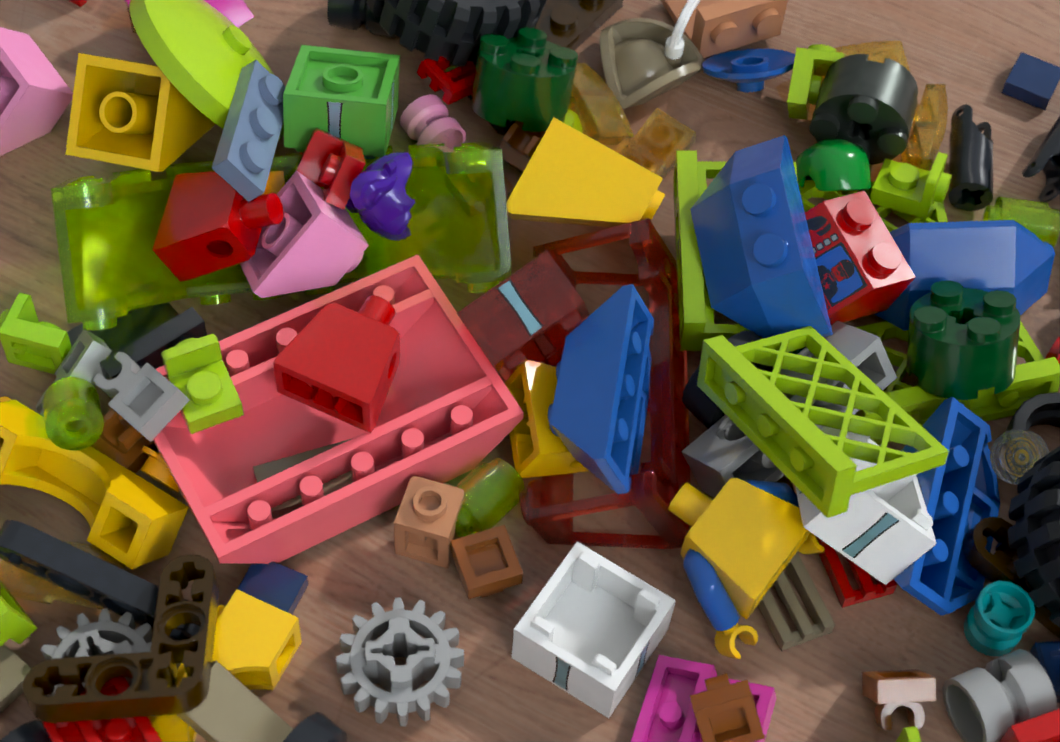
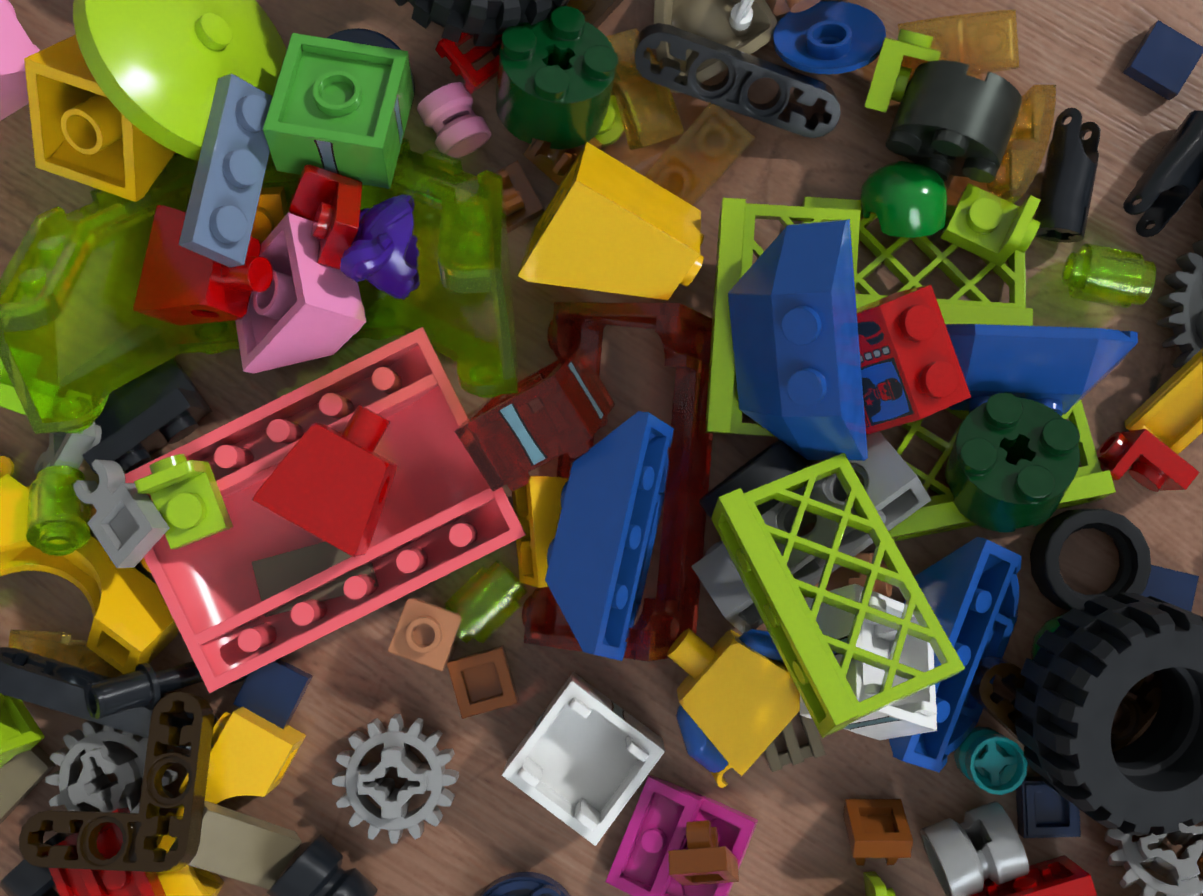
camera: 10 degrees right, 30 degrees up
(153, 555) = (139, 688): none -> black pin
(675, 96) = (741, 73): none -> black beam
(1016, 453) = (1046, 591): clear tile -> none

